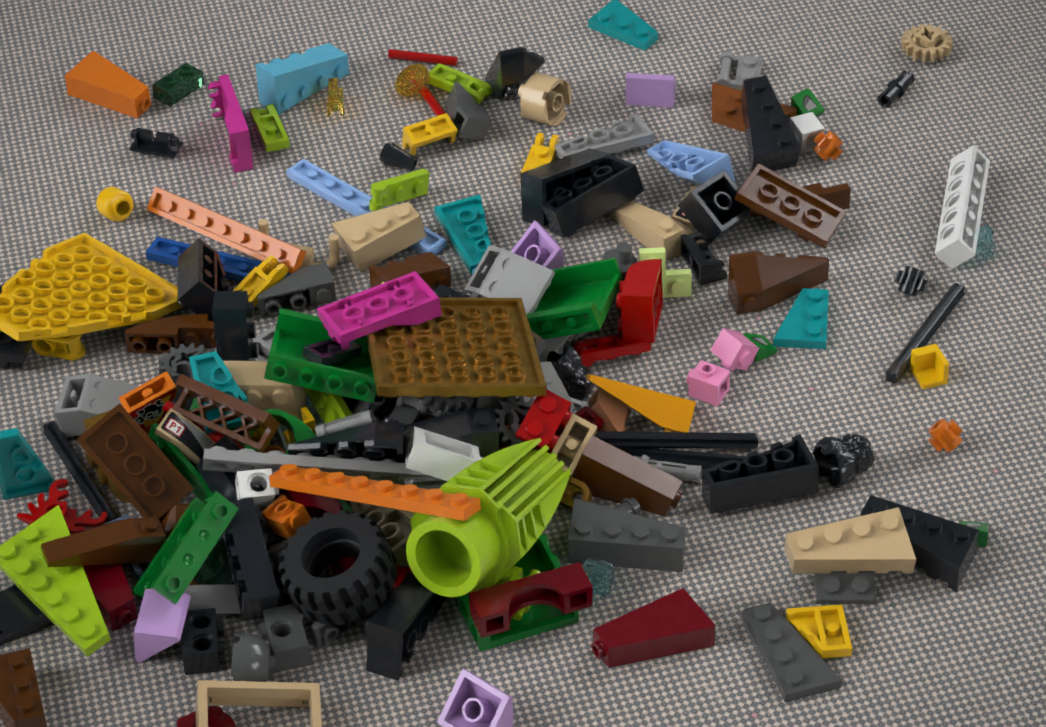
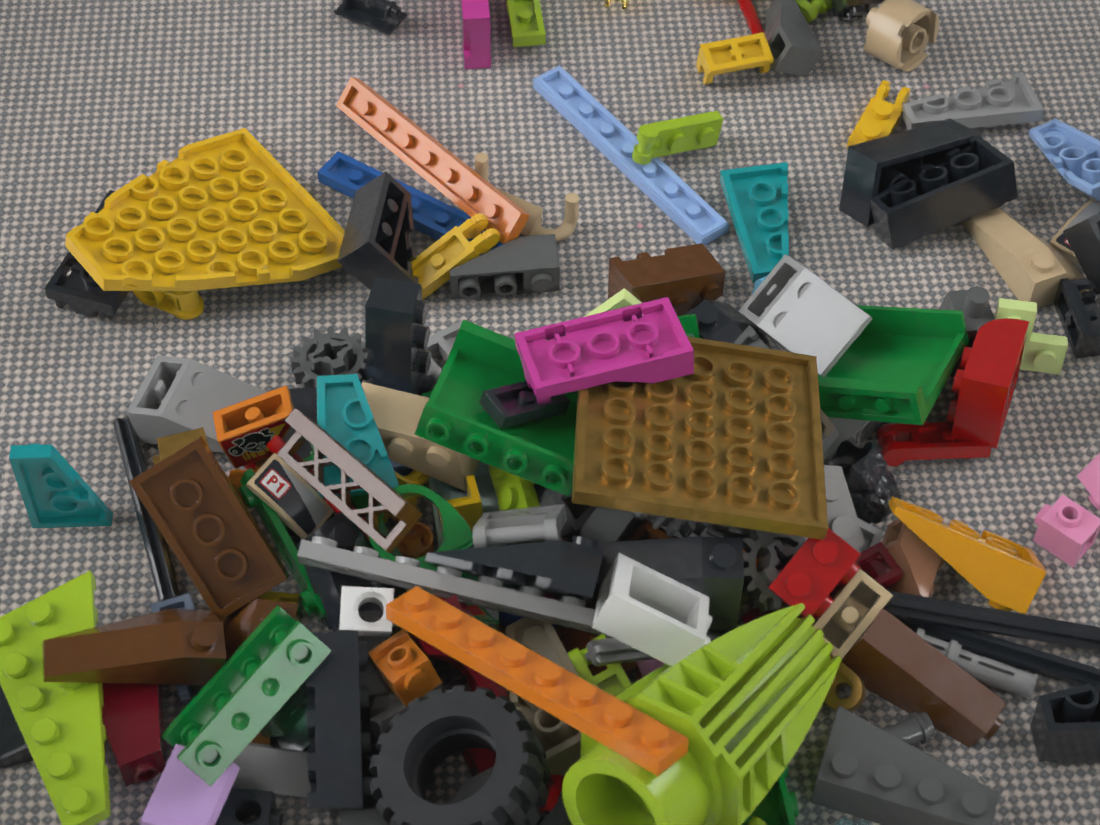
camera: 10 degrees right, 10 degrees up
(74, 523) = (107, 579): red animal -> none
(114, 204) = (294, 91): yellow head -> none
(168, 332) = (314, 306): reddish brown slope -> none
(379, 234) = (637, 202): tan wedge -> none
(395, 156) = (685, 84): black cone -> none
(540, 247) = (853, 268): lavender slope -> none
(650, 90) = (1047, 42): lavender slope -> none

